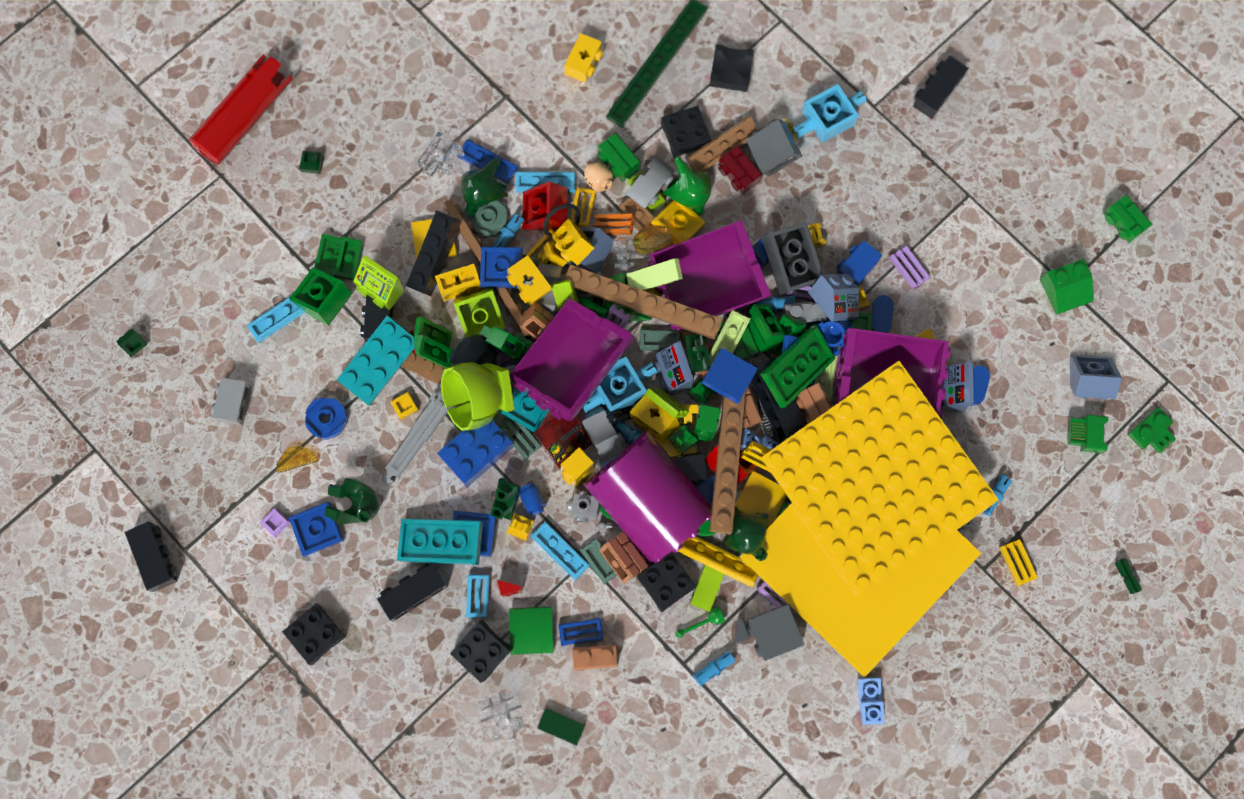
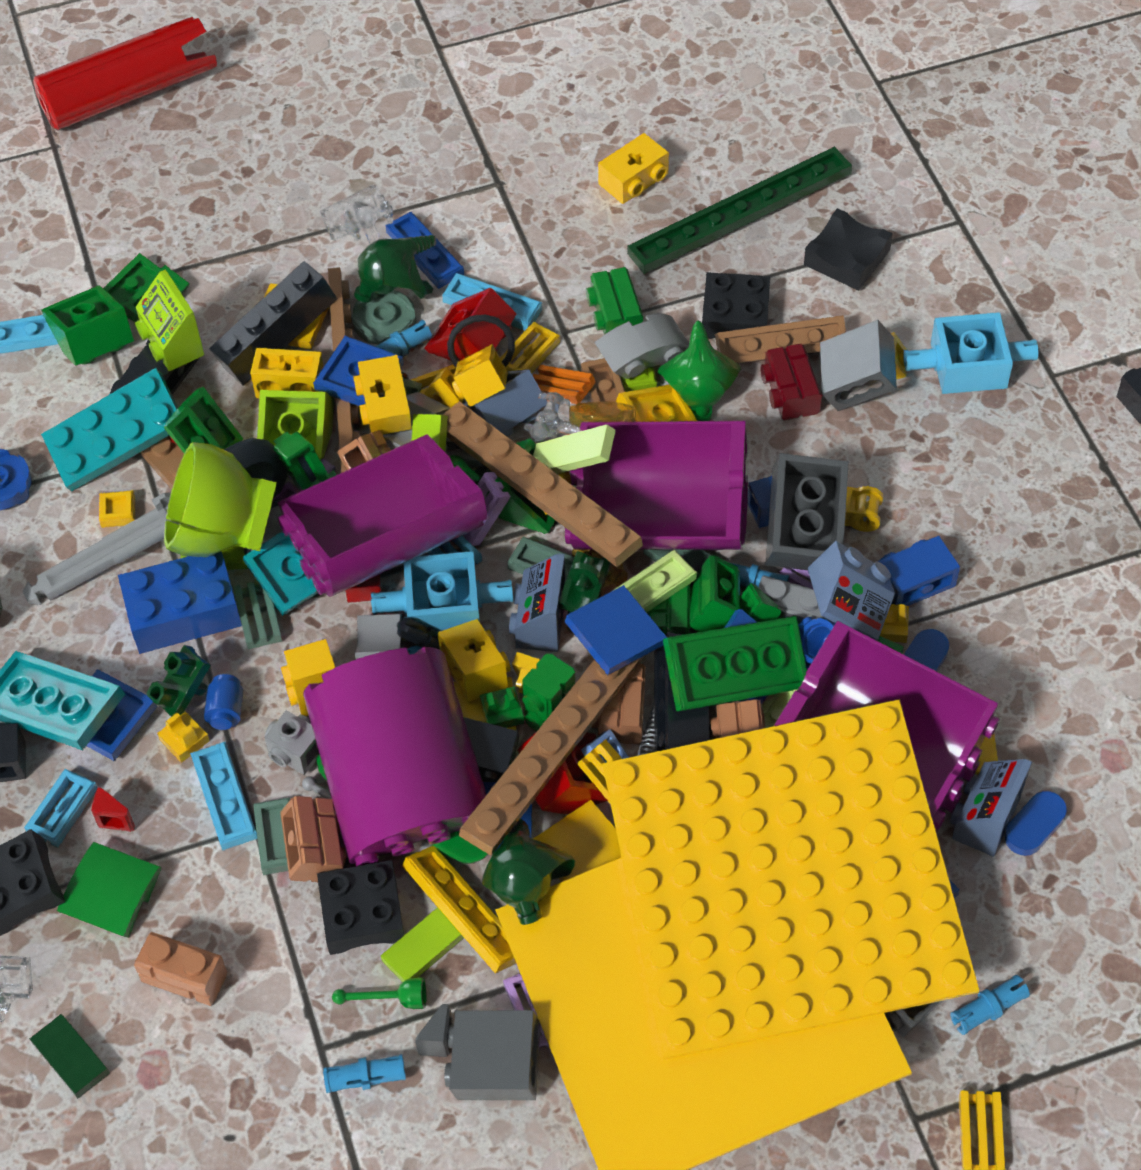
camera: 30 degrees right, 20 degrees down
(311, 162) = (180, 168): dark green tile -> none
(561, 439) = (315, 619): clear red slope -> none
(580, 632) = (218, 921): blue tile -> none
(598, 177) = (572, 316): light nougat head -> none
(667, 403) = (500, 638): lime tile -> none
(701, 393) = (572, 653): green tile -> none
(914, 262) = (996, 586): lavender tile -> none

